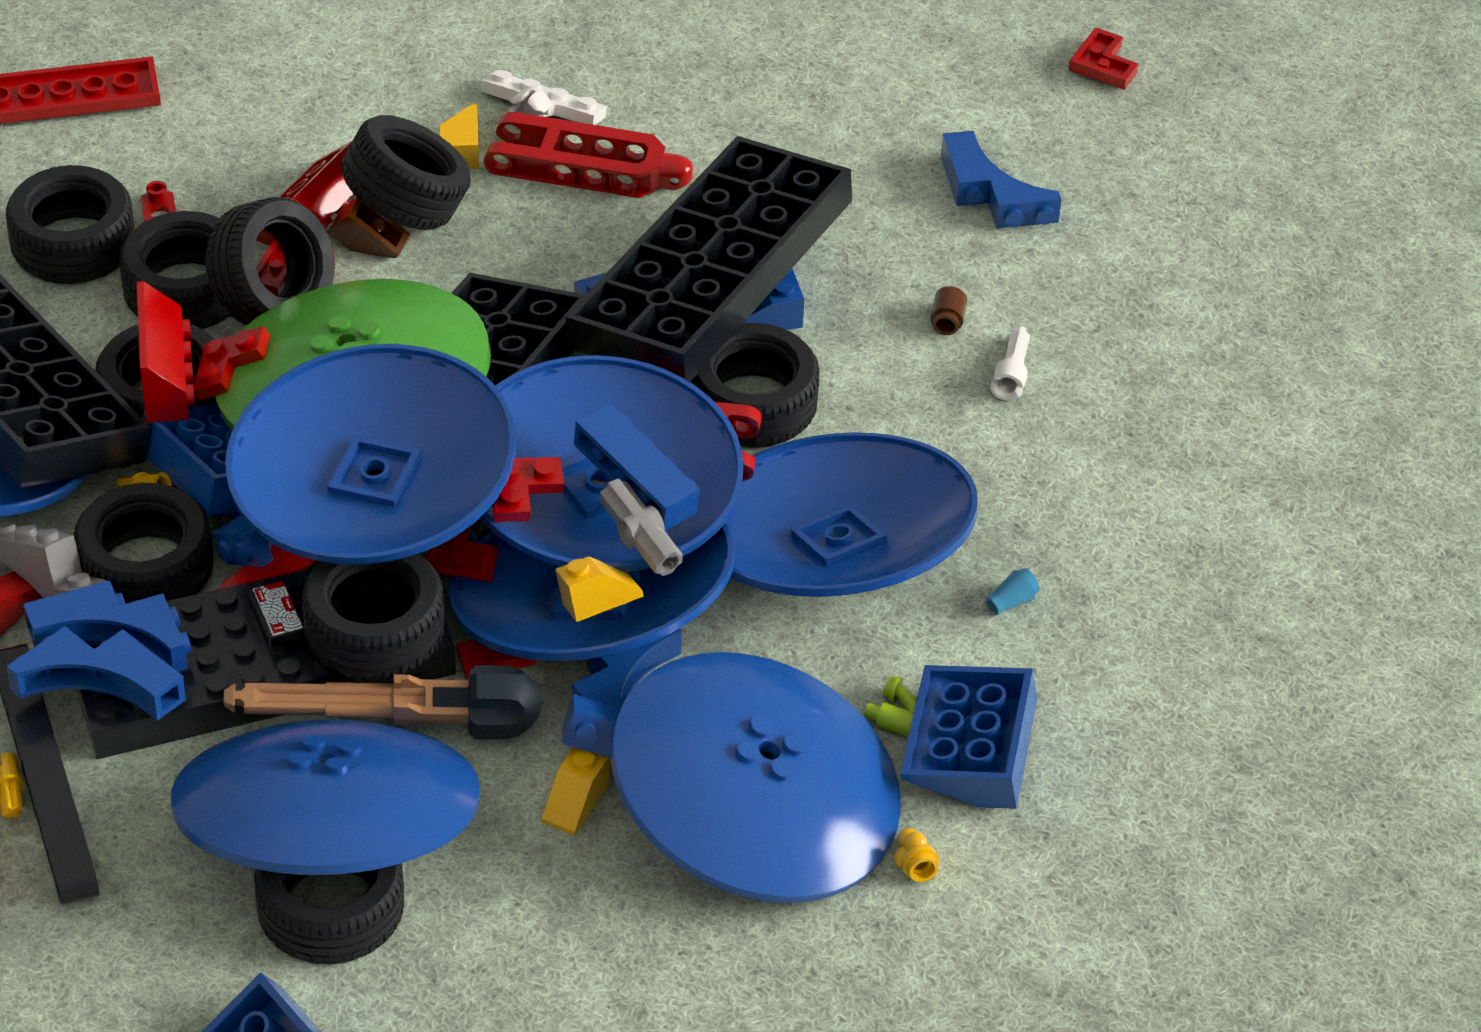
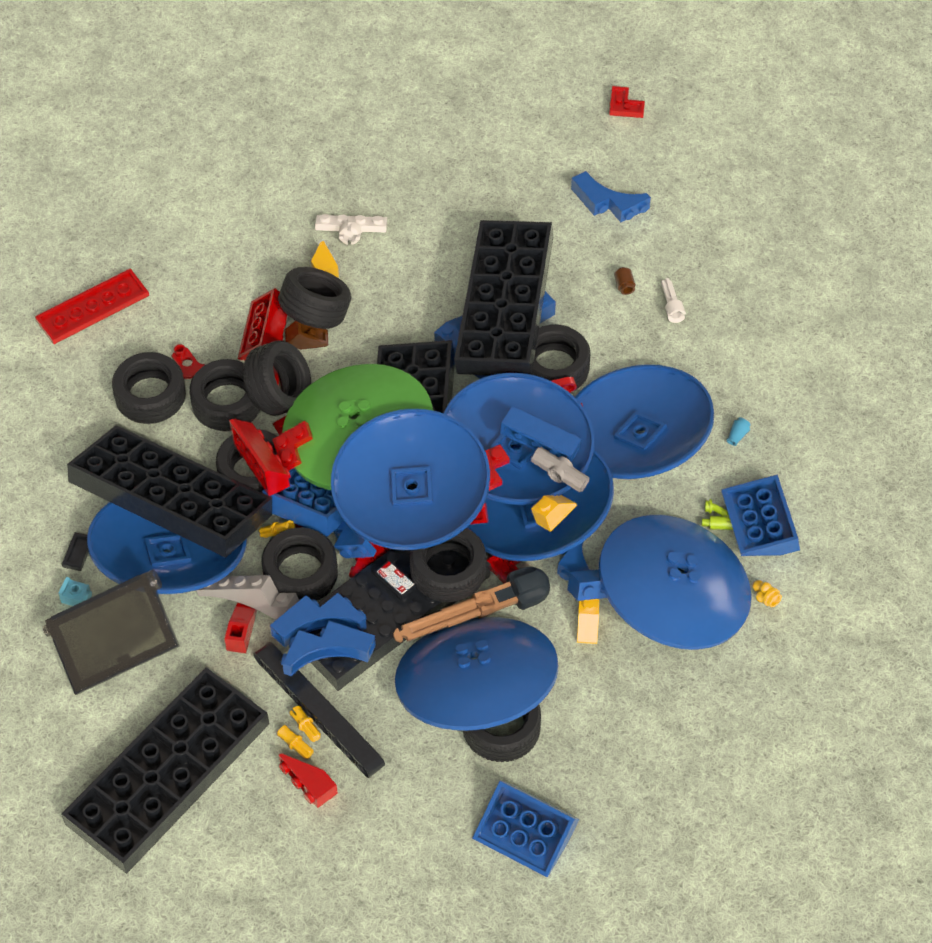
camera: 20 degrees left, 10 degrees up
(545, 145) = (373, 264): red piece -> none

